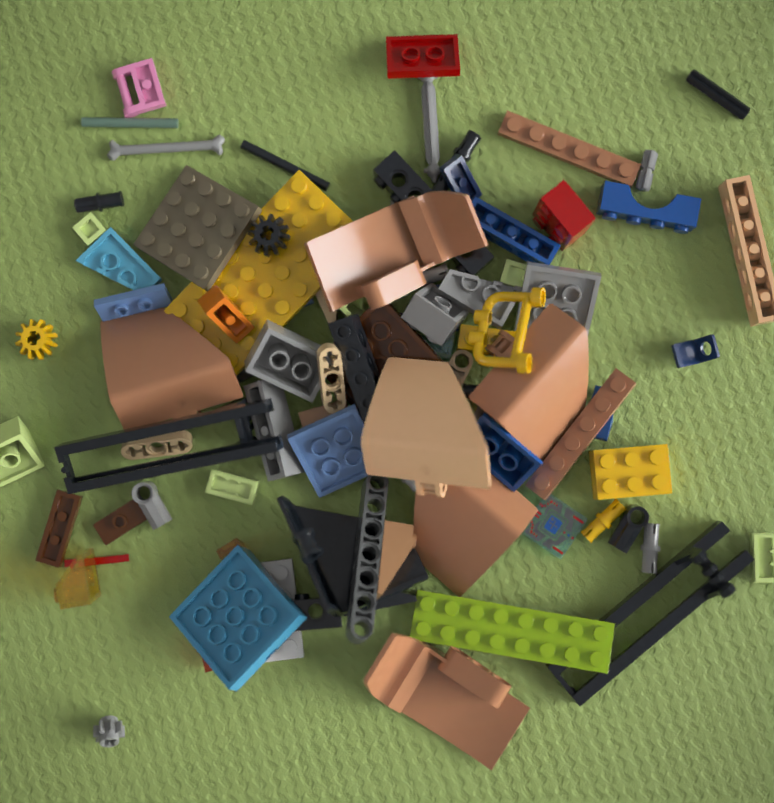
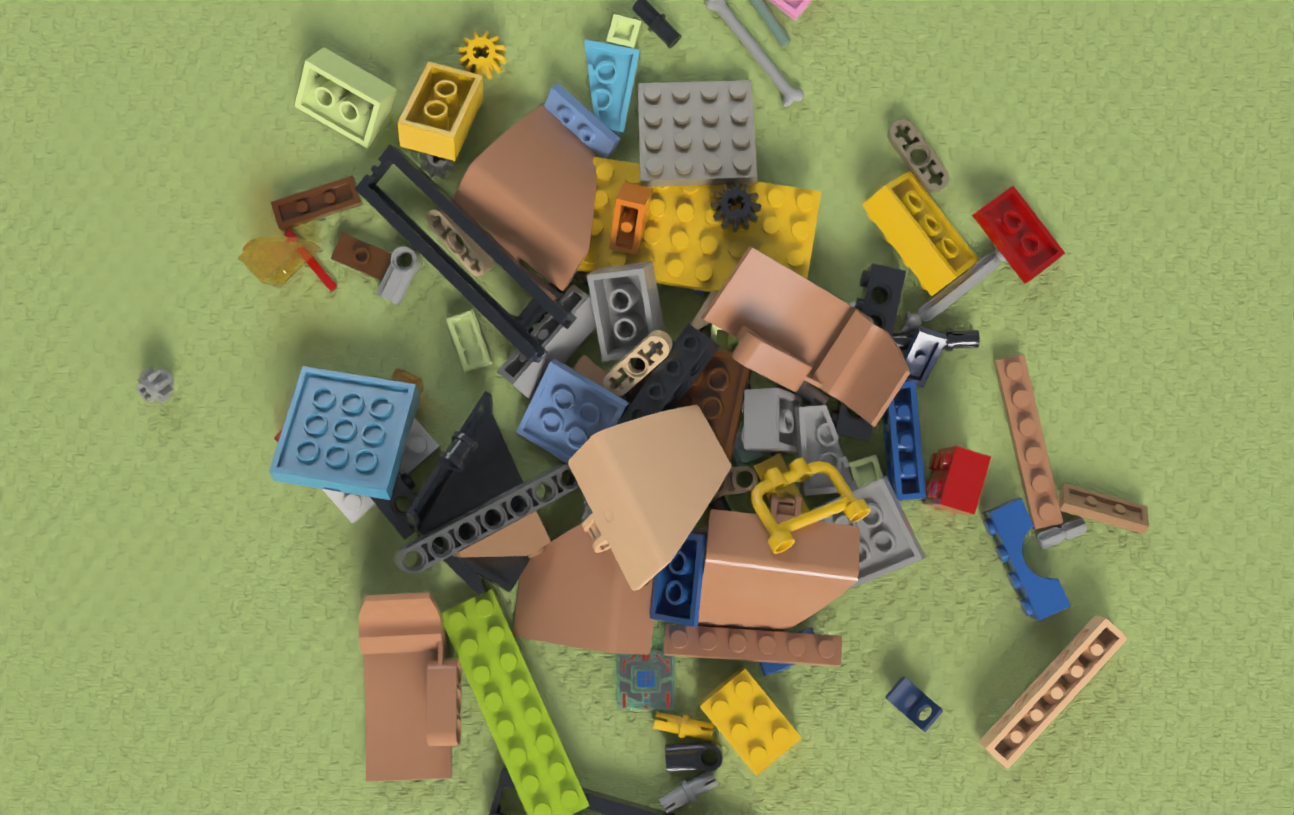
camera: 55 degrees right, 0 degrees up
(56, 395) = (440, 111): none -> yellow brick
(84, 417) = (435, 169): none -> light grey gear
(283, 164) = (817, 173): black bar -> none
(313, 79) = (899, 143): none -> dark tan beam
(374, 122) = (920, 232): none -> yellow slope
(649, 130) = (1103, 508): none -> medium nougat plate
(718, 94) = (1188, 552): black axle -> none

